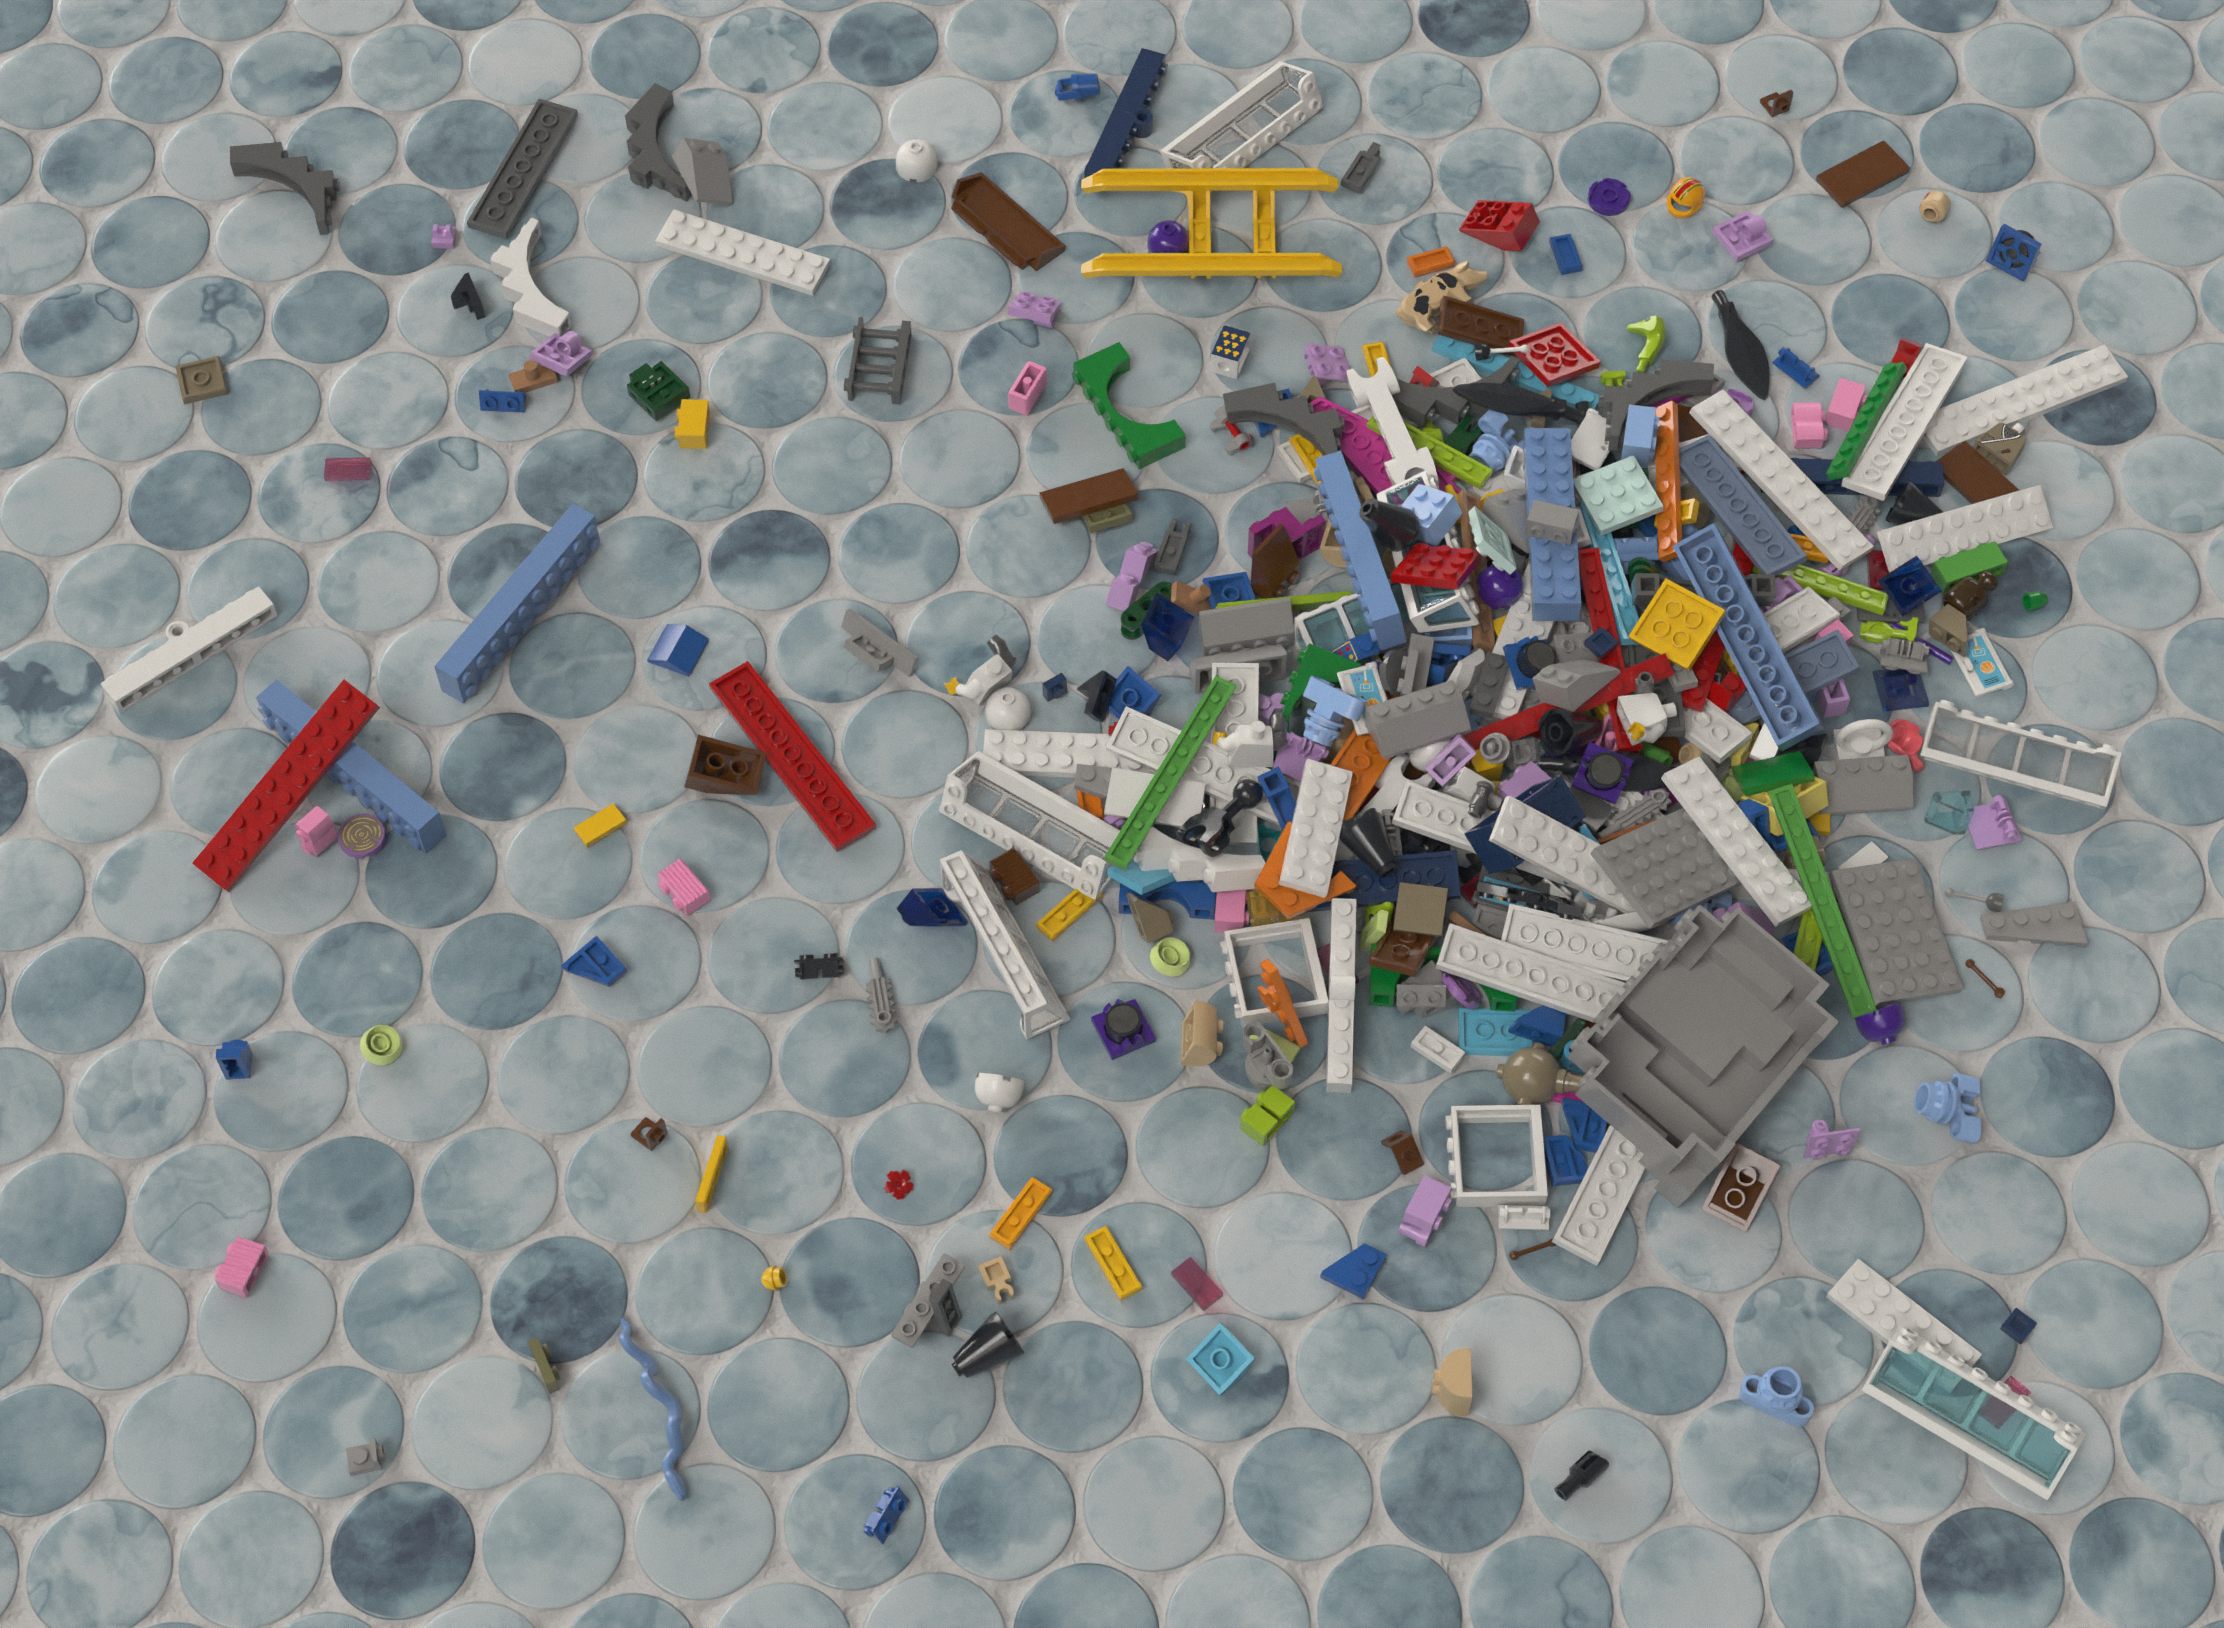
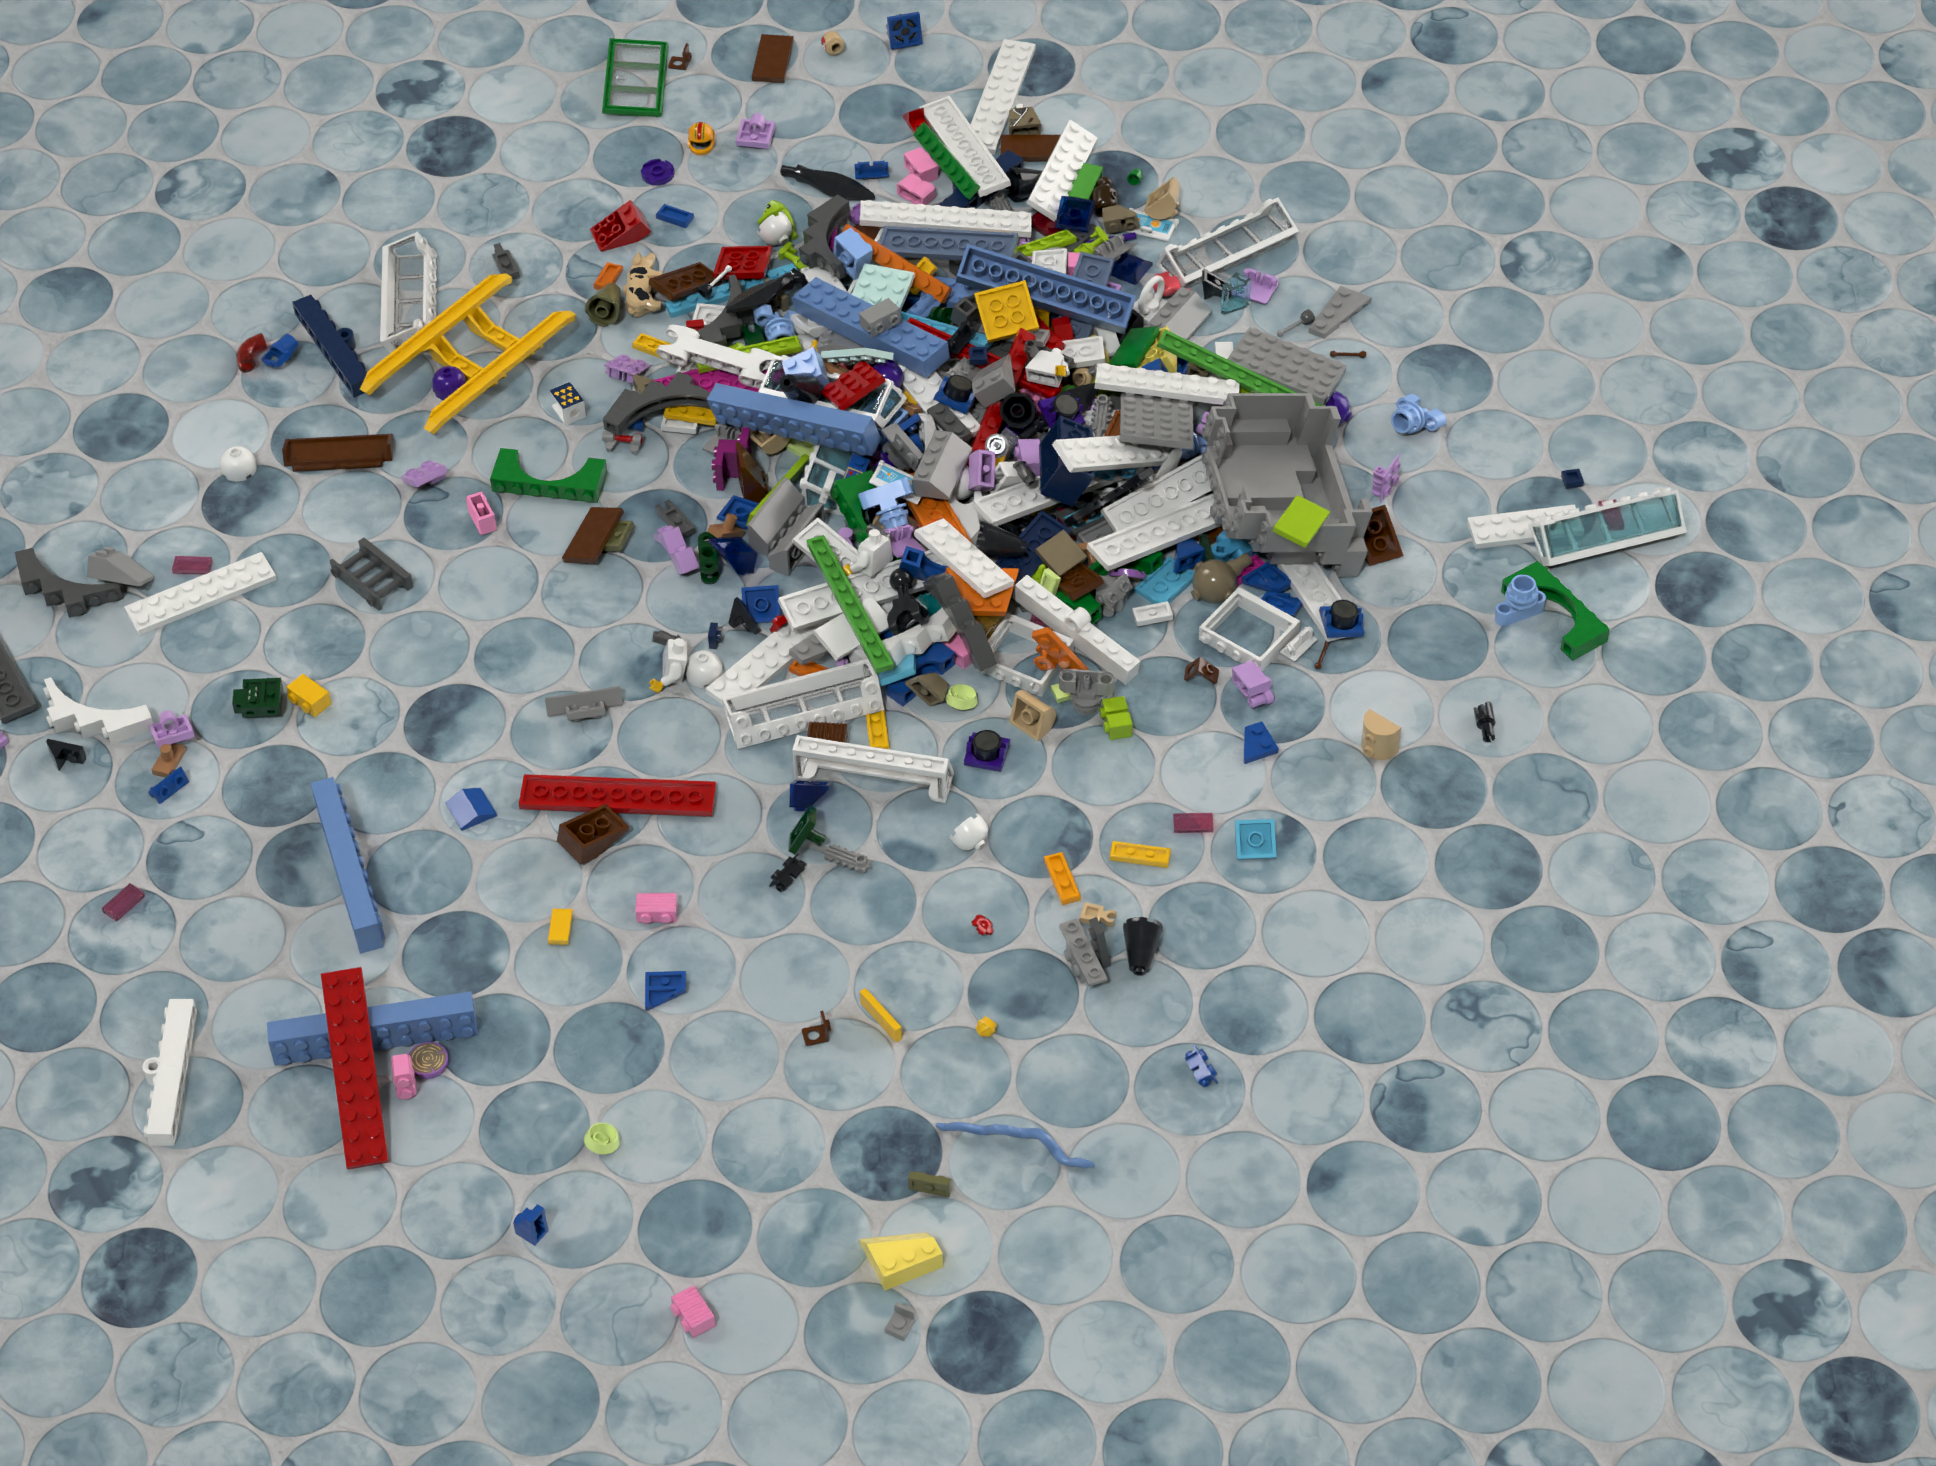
camera: 50 degrees left, 10 degrees down
(440, 1400) = (902, 1257): none -> light yellow wedge
(769, 220) = (192, 565): none -> clear pink tile
(870, 944) = (804, 830): none -> dark green tile
(1056, 62) = (248, 350): none -> clear red cylinder
(1239, 874) = (958, 610): none -> dark grey arch
(1317, 639) = (827, 486): none -> white tile
(1386, 285) = (604, 305): none -> olive cone
(1586, 1234) = (1341, 618): none -> piece
(1606, 611) = (960, 338): none -> black hinge
(1622, 349) = (775, 230): none -> white cylinder
(1624, 1103) = (1301, 521): none -> lime tile
(1713, 84) = (635, 77): none -> clear door
(1805, 1492) = (1588, 629): none -> green arch
(1945, 778) = (1212, 283): none -> black slope
(2018, 651) = (1164, 200): none -> tan brick

